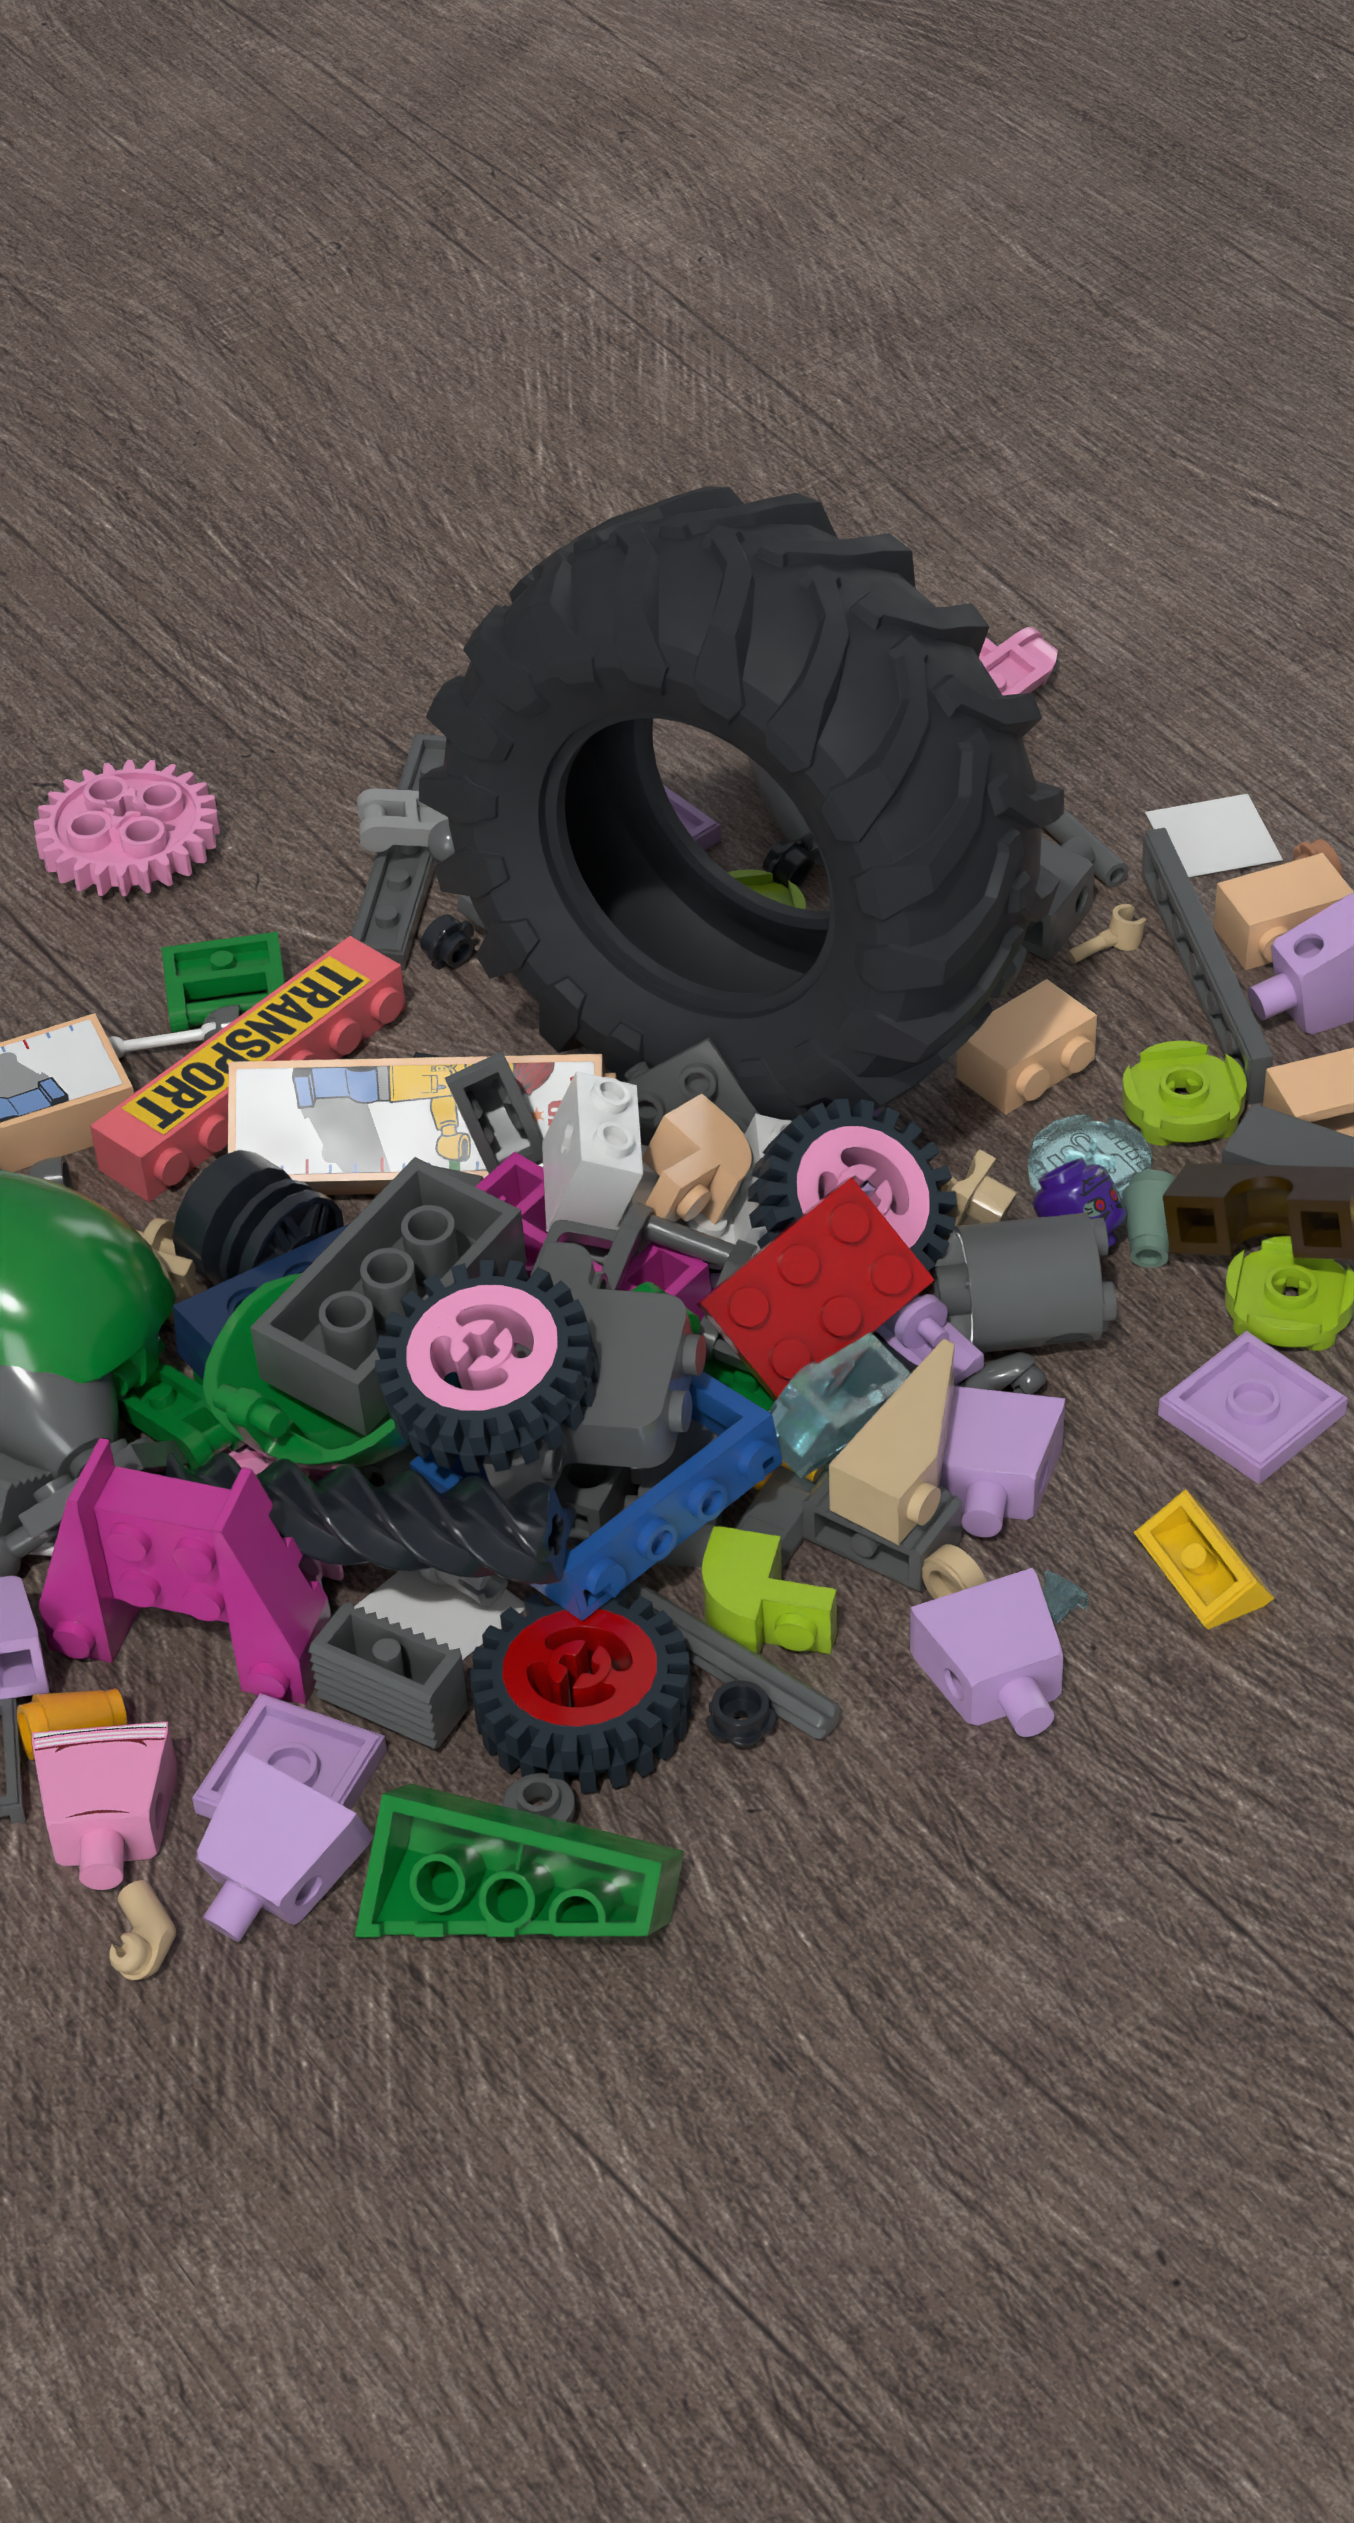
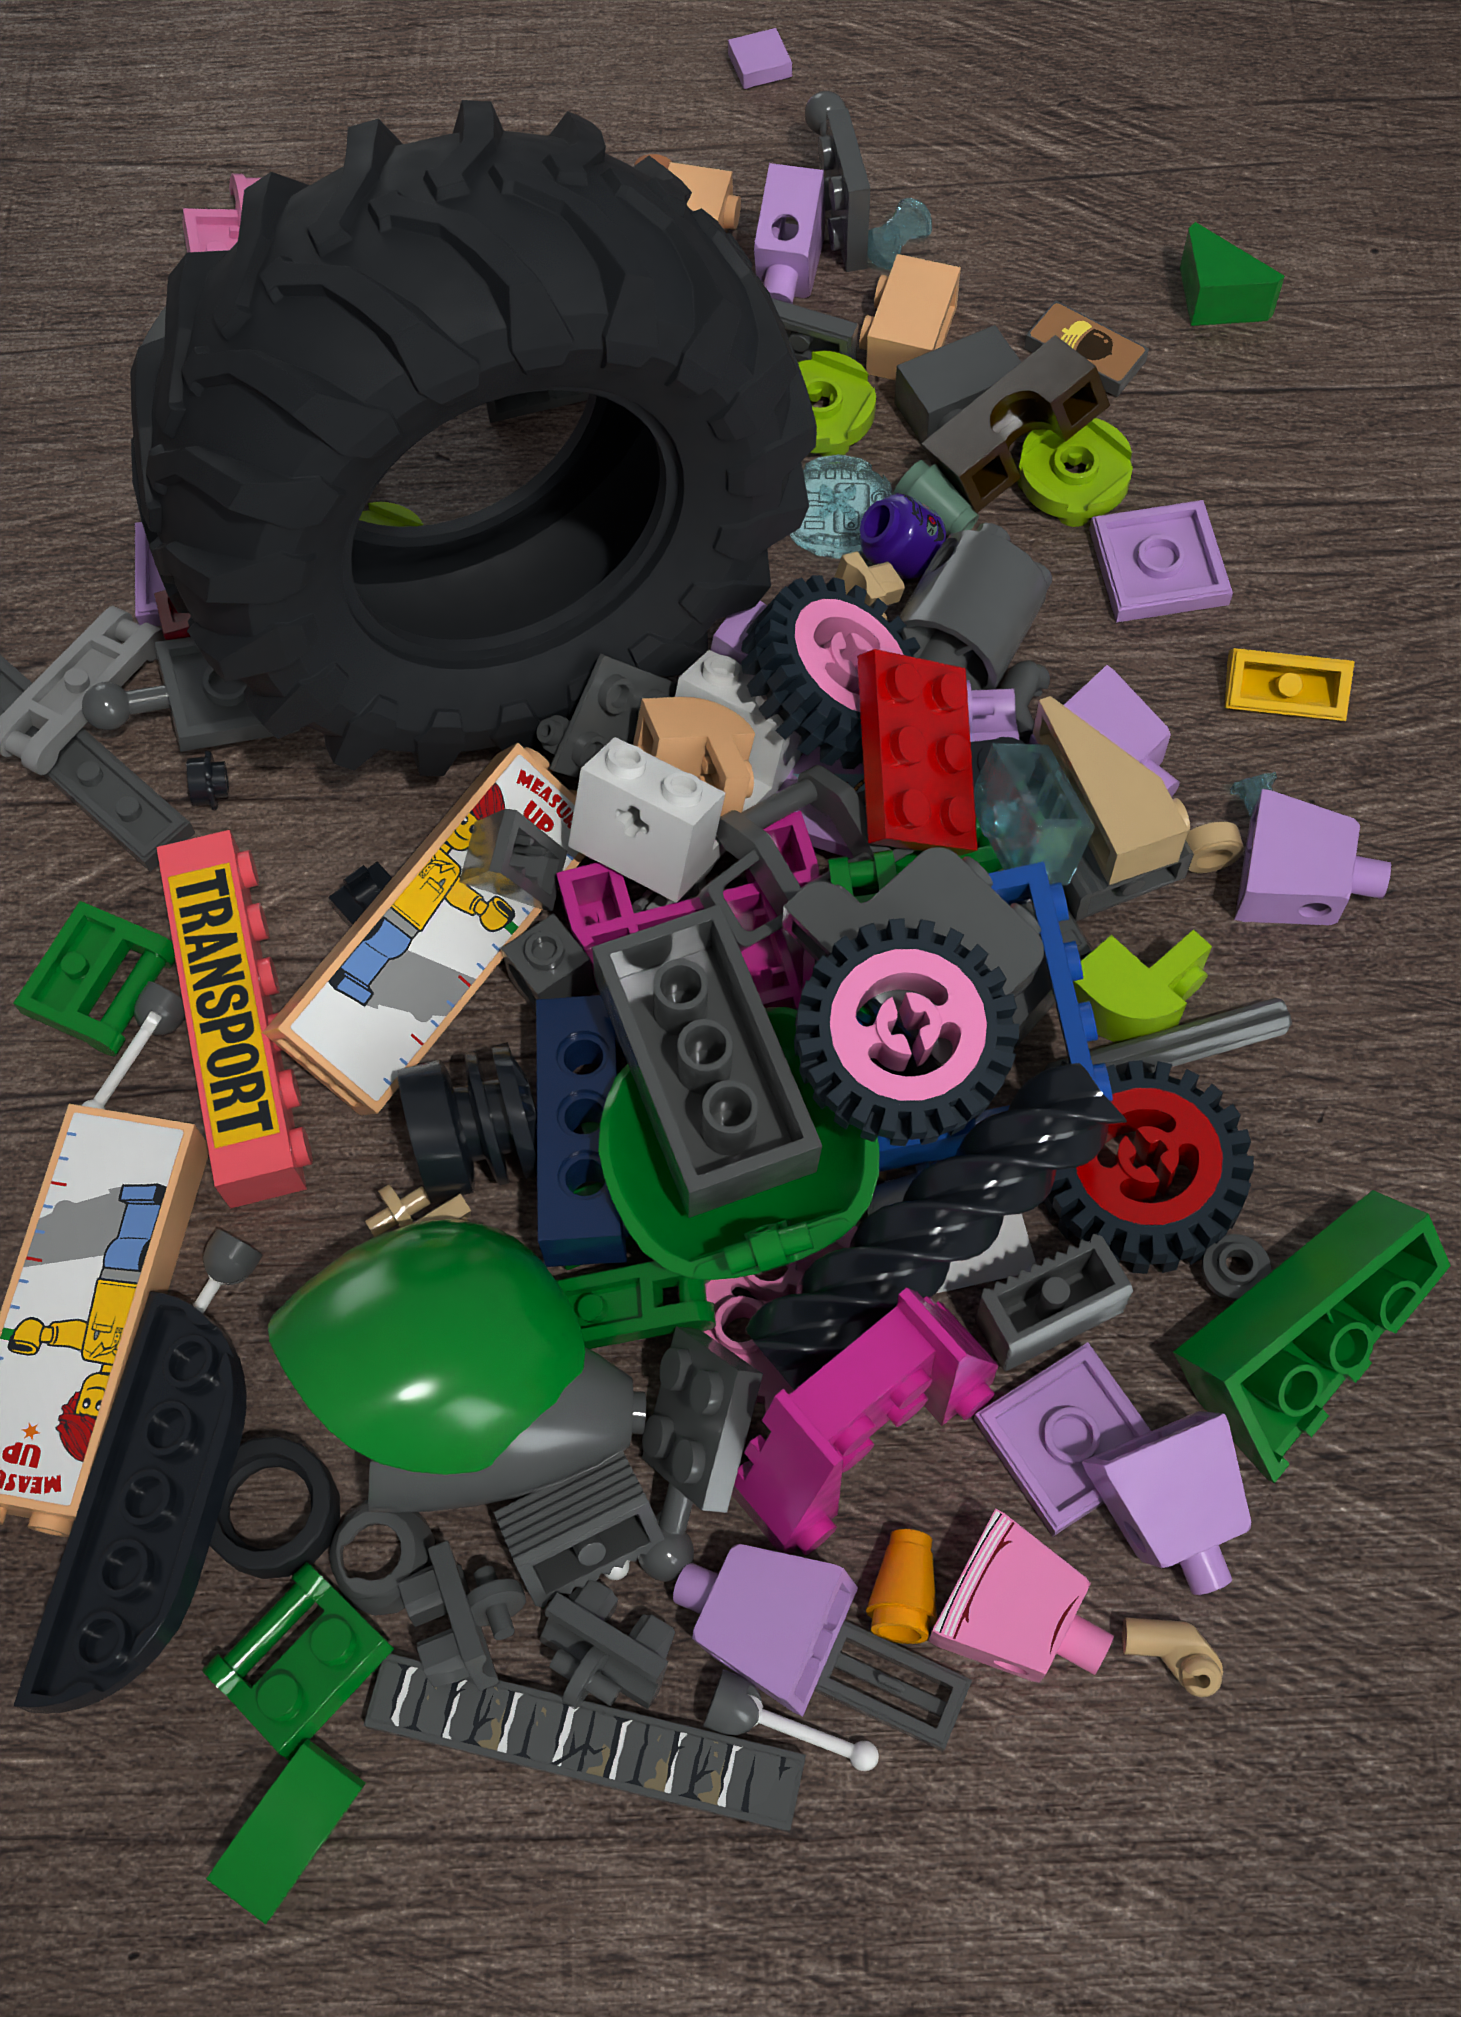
camera: 55 degrees left, 20 degrees up
(740, 1700) = (1249, 1060): black plate -> none

